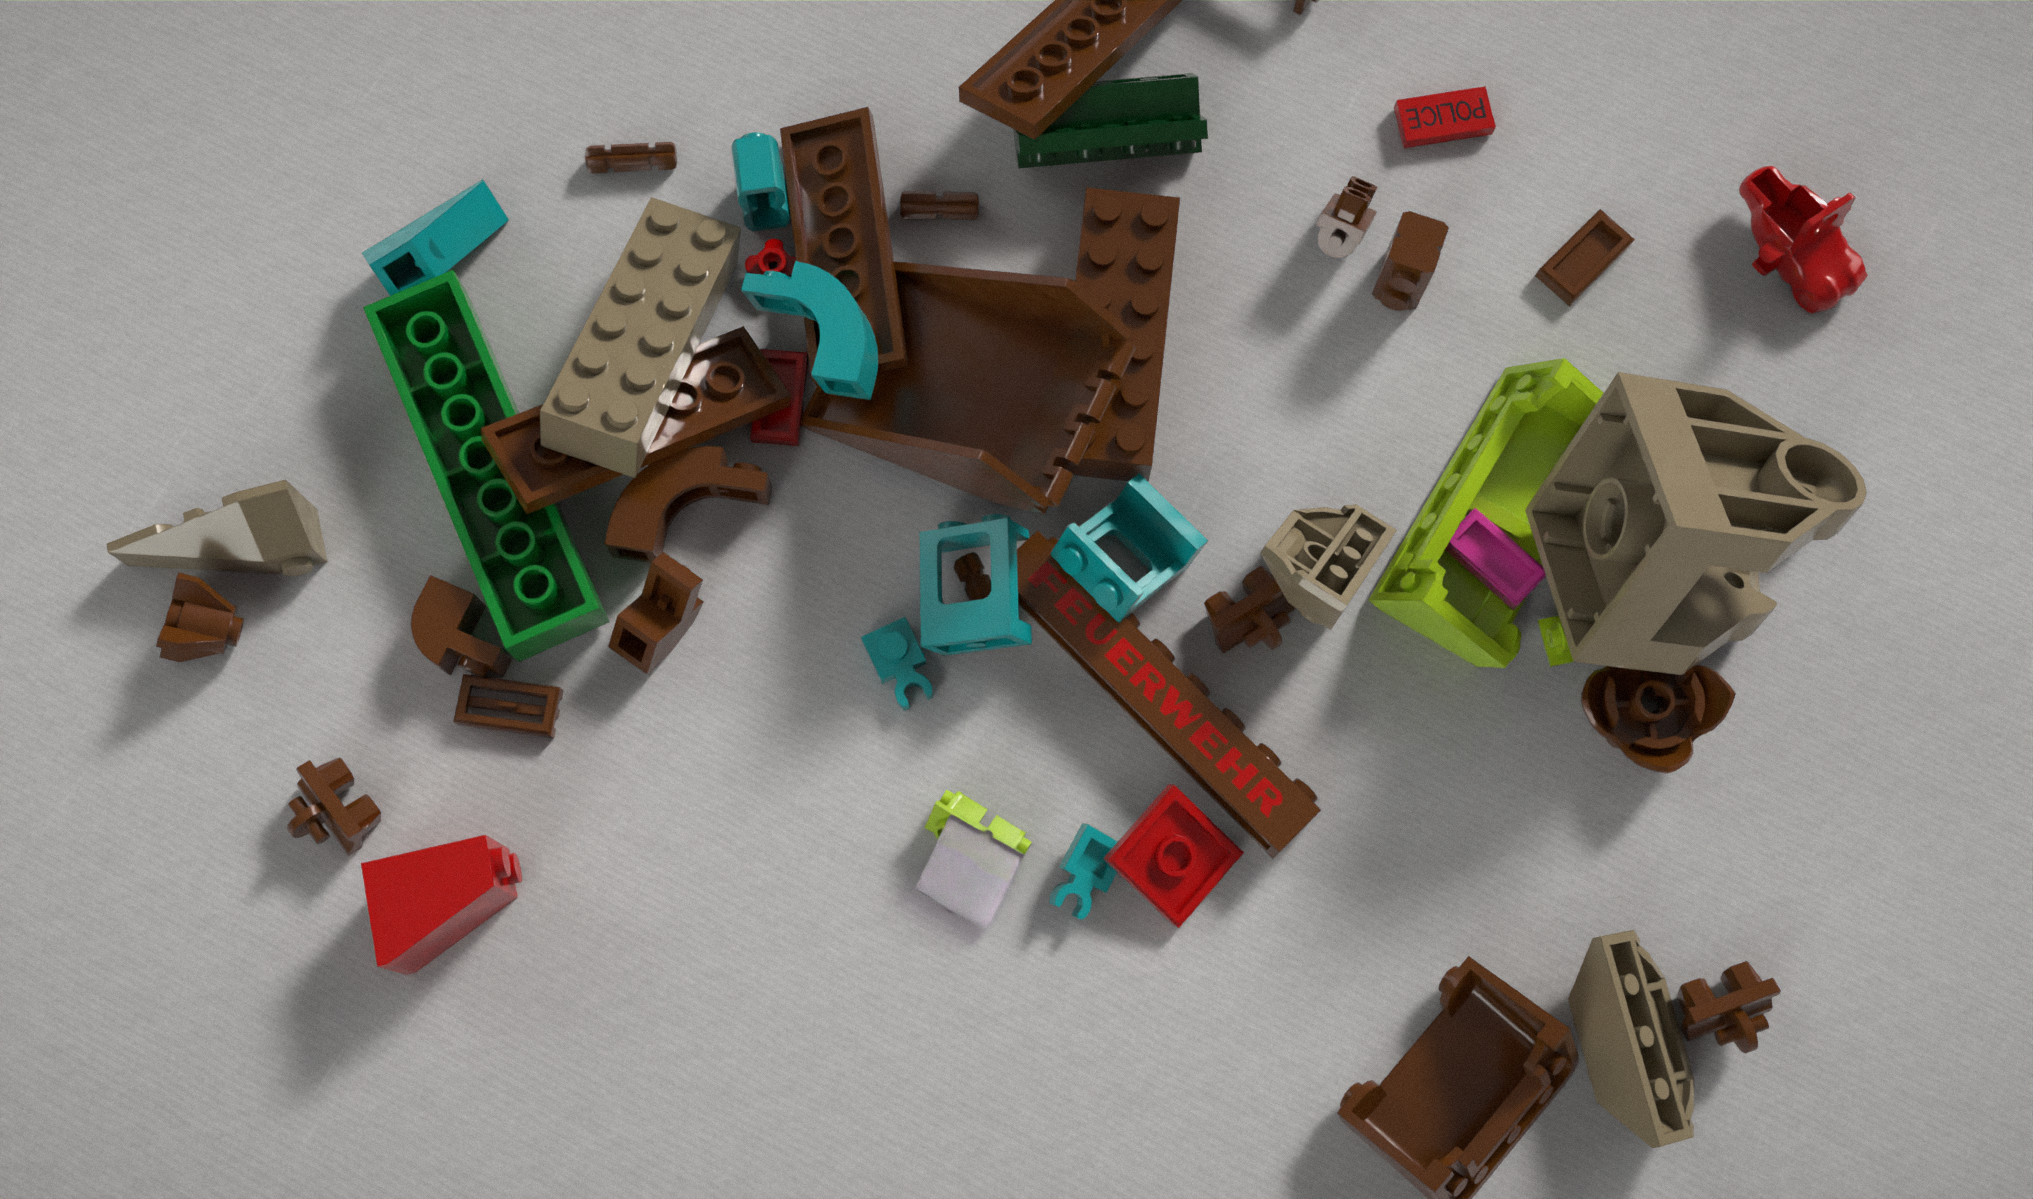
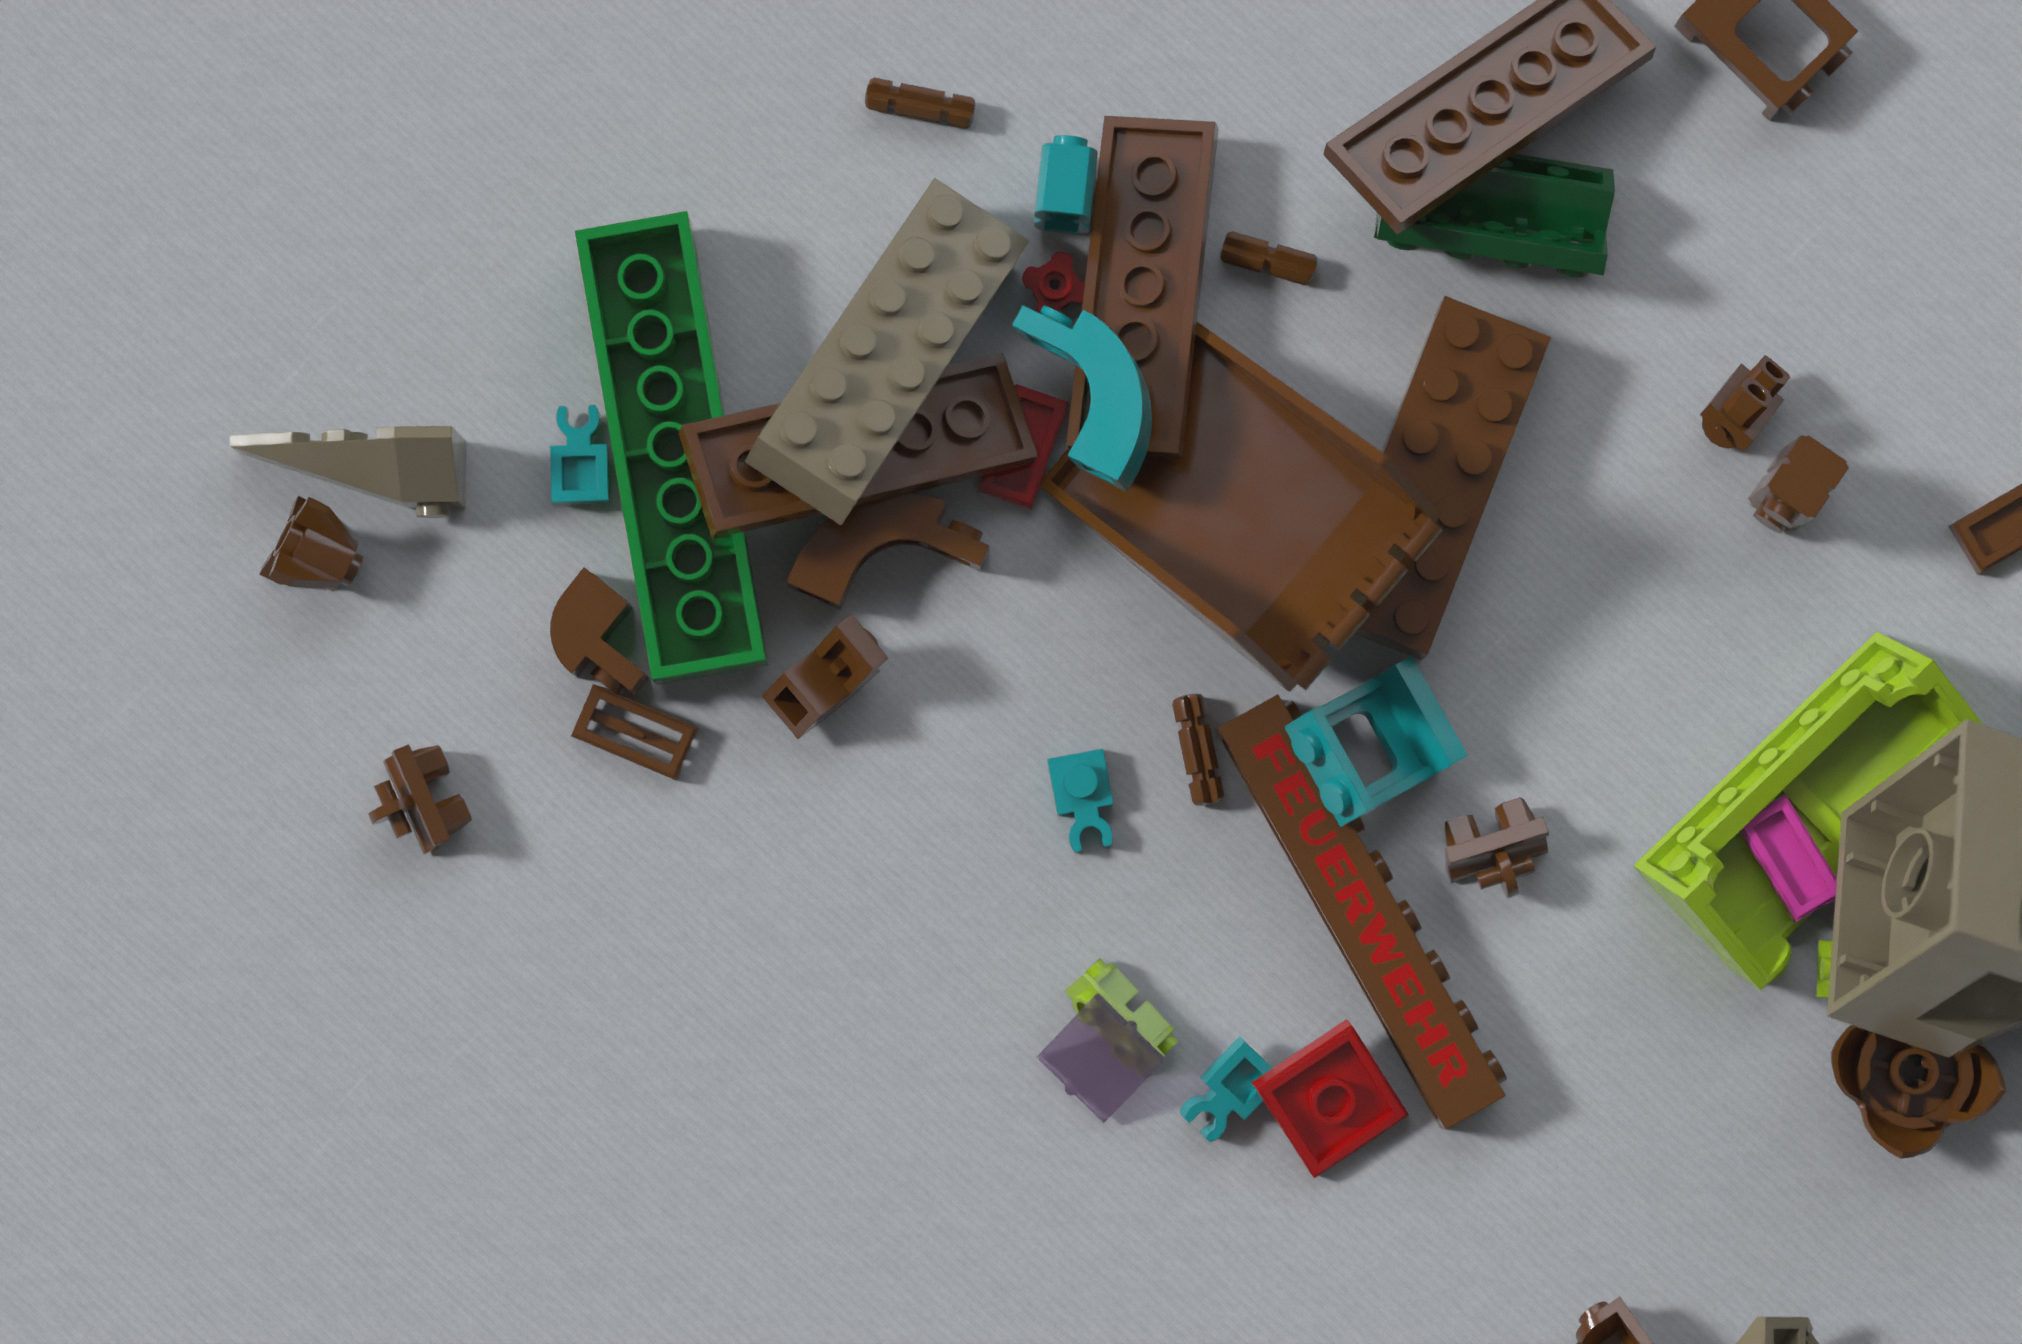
camera: 15 degrees right, 10 degrees up
(415, 501) = (579, 467): none -> teal plate
(435, 898) = (516, 934): red slope -> none
(436, 239) = (668, 159): teal slope -> none
(975, 623) = (1176, 783): teal window -> none
(1325, 557) = (1597, 811): dark tan wedge -> none
(1444, 117) = (1901, 301): red tile -> none

